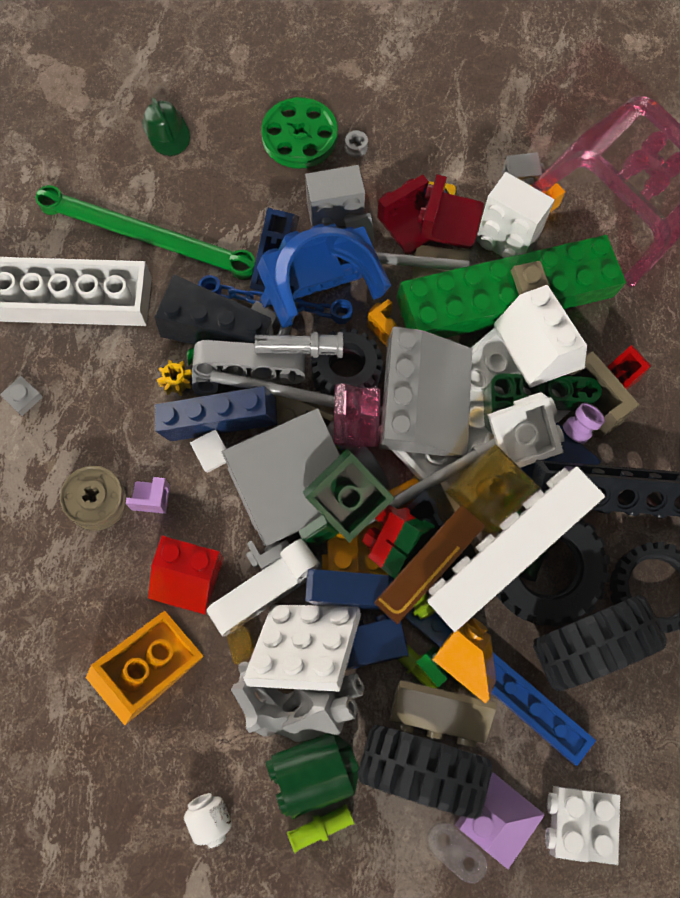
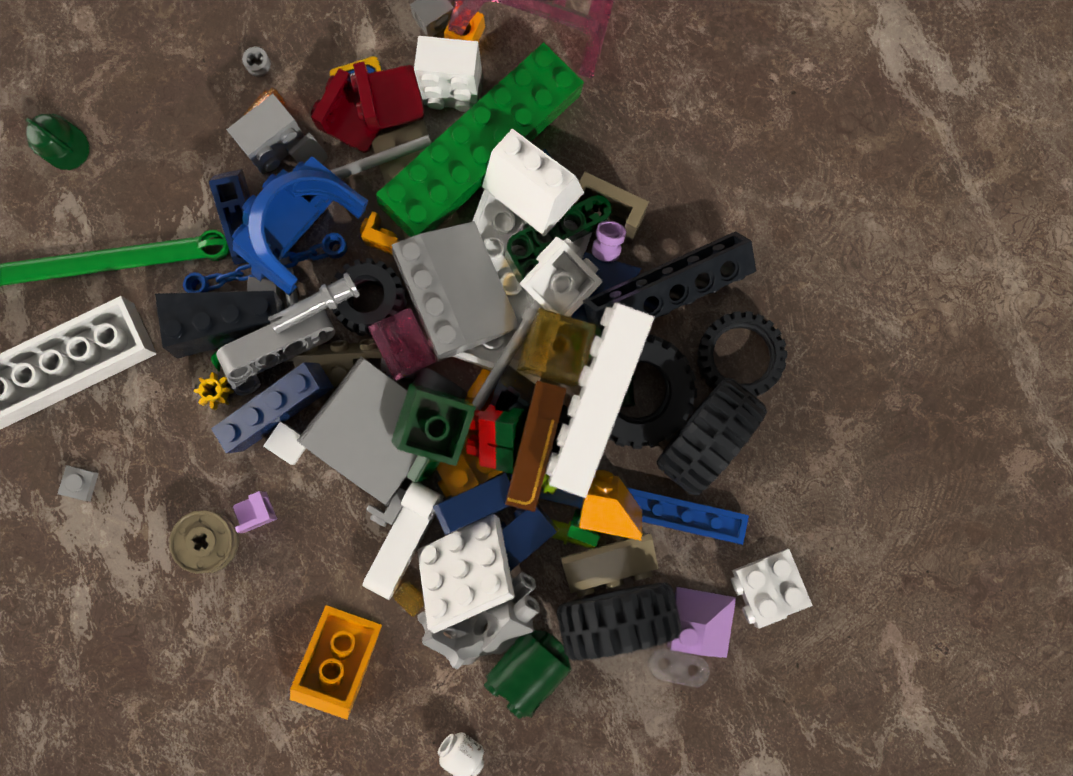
camera: 25 degrees left, 10 degrees up
(184, 574) = (325, 566): red slope -> none
(275, 389) = (313, 356): light grey bar -> none
(299, 123) = (185, 69): green wedge -> none
(320, 828) = (557, 710): lime pin -> none
(529, 276) = (492, 127): dark tan plate -> none
(629, 367) = (623, 167): red slope -> none

